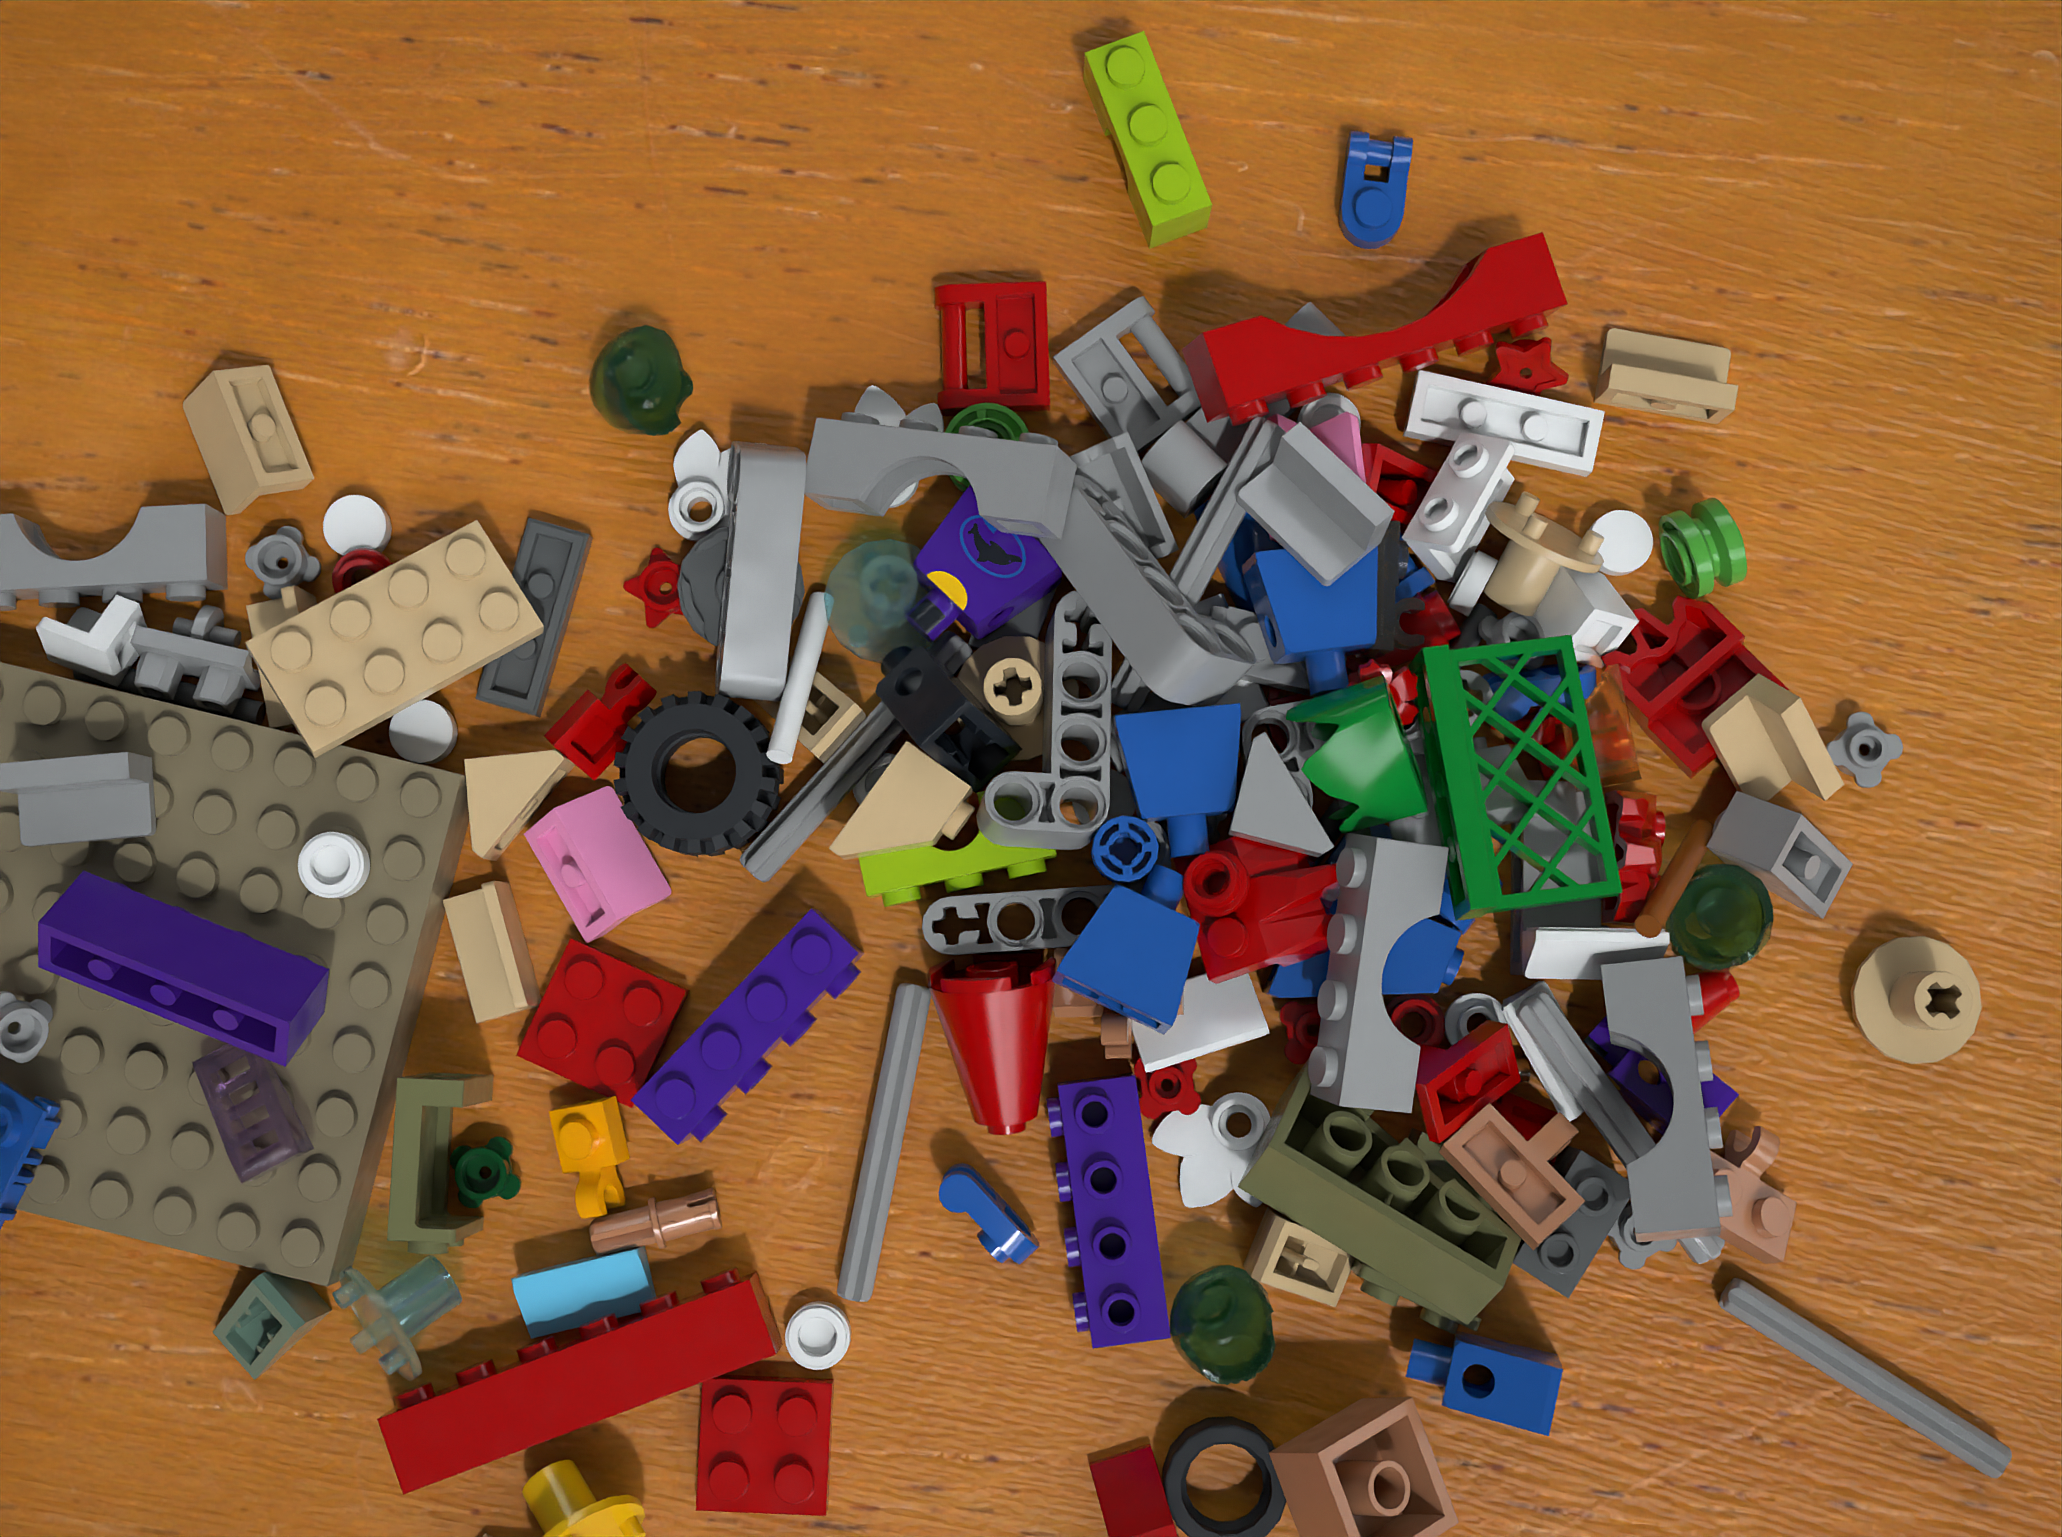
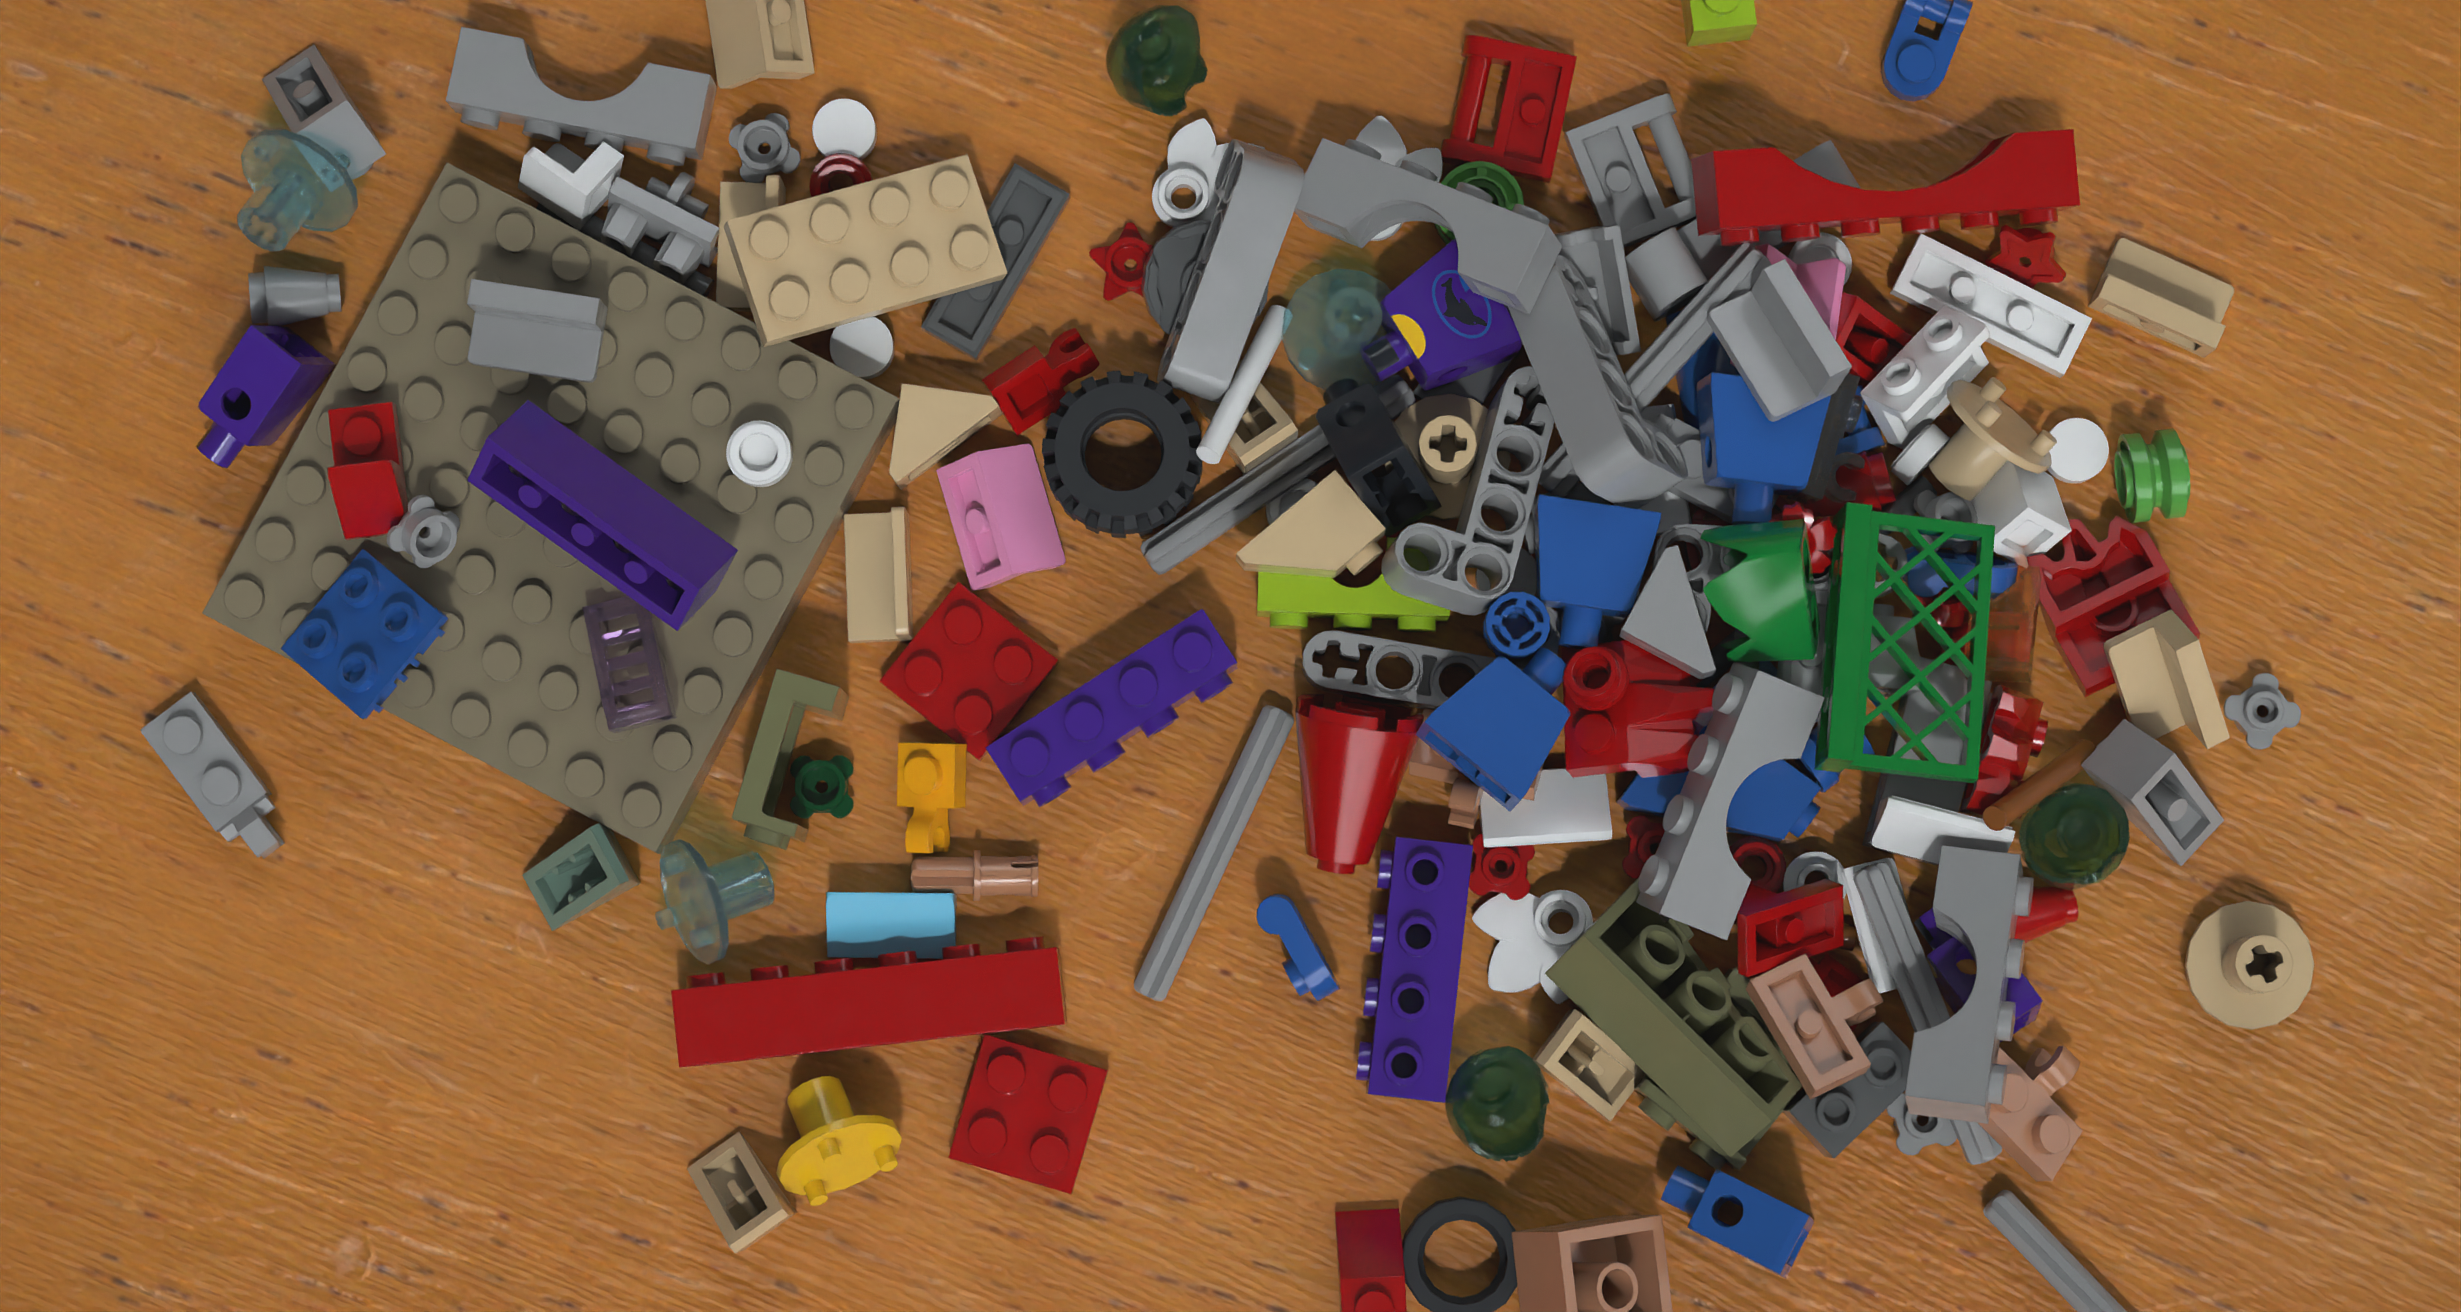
camera: 15 degrees right, 0 degrees up
(818, 1335) = (1104, 1023): white tile -> none

